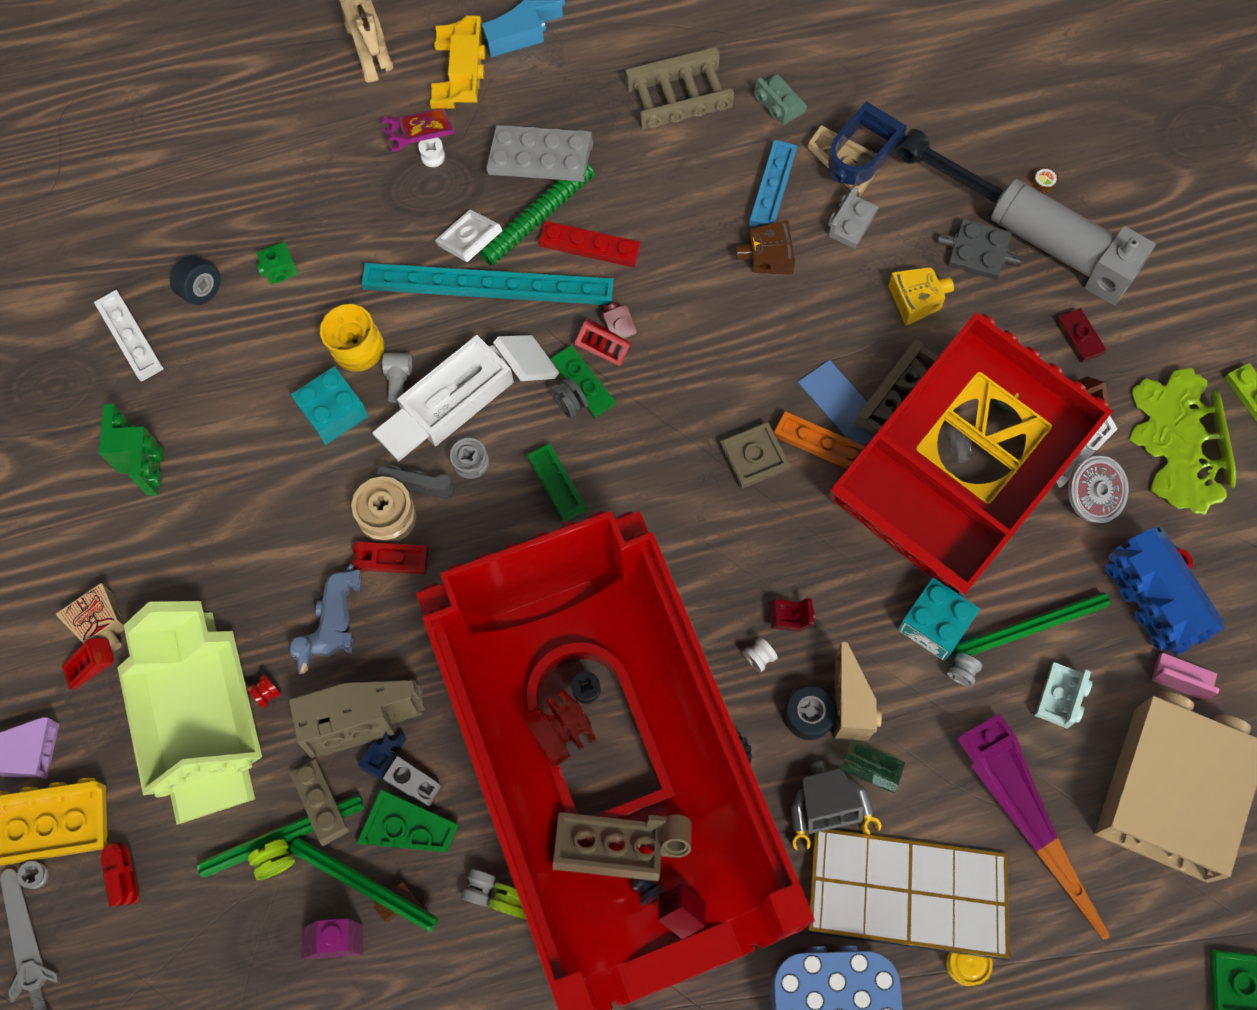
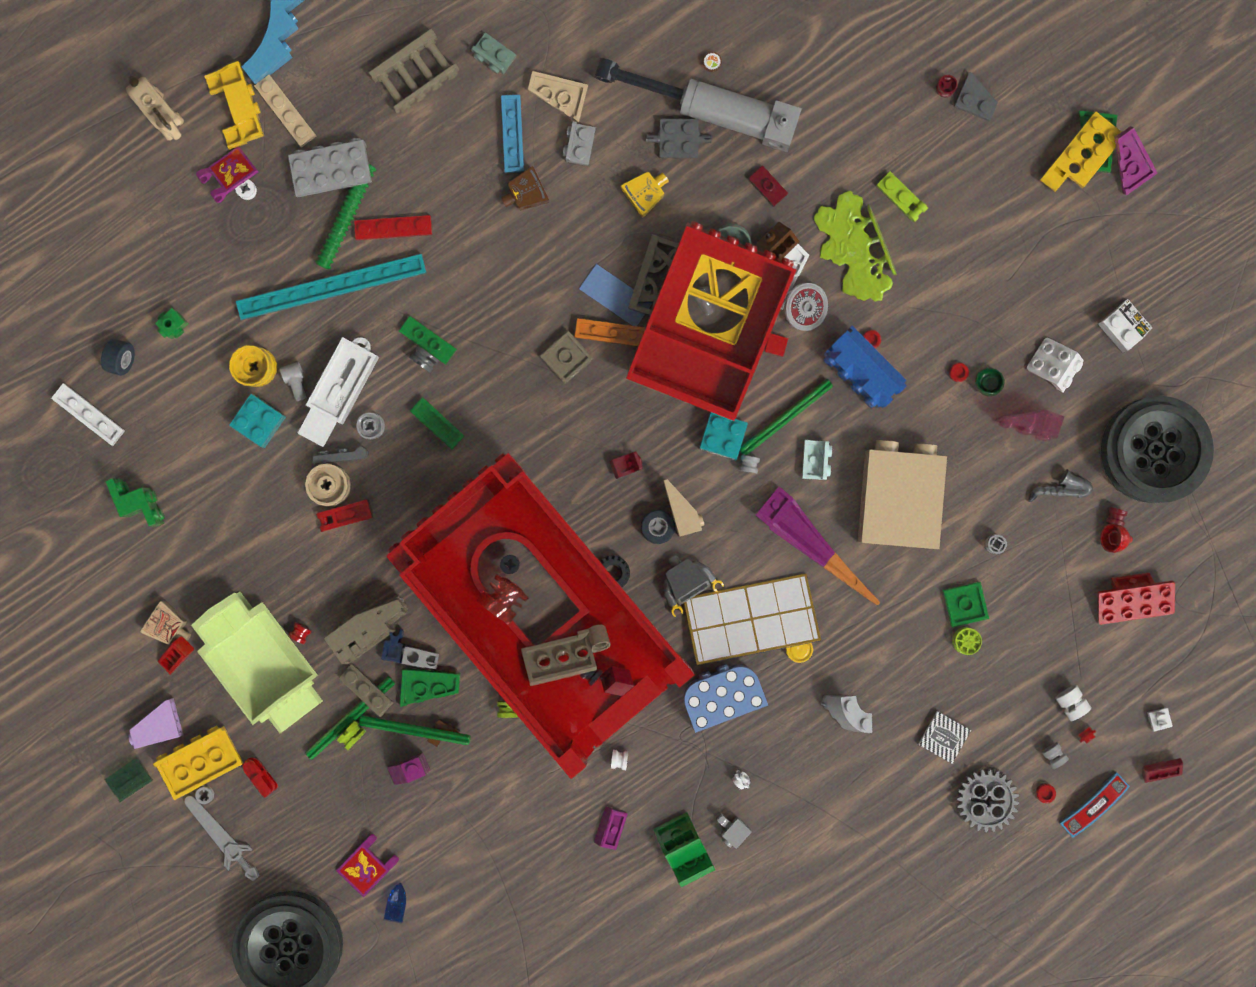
camera: 25 degrees left, 20 degrees up
(334, 620) = (325, 570): sand blue animal -> none
(468, 235) = (302, 253): white tile -> none
(481, 881) = (487, 702): light grey wheel -> none
(512, 88) = (285, 110): none -> tan plate
(526, 357) = (382, 339): white tile -> none
(590, 346) = (422, 311): red slope -> none
(618, 319) = (436, 285): bracket -> none
(760, 654) = (614, 499): white wheel -> none
(873, 766) = (707, 548): clear green plate -> none
(880, 124) = (578, 61): dark blue window -> none
(1042, 528) = (776, 345): none -> red tile
(1185, 677) = (892, 419): bright pink panel -> none

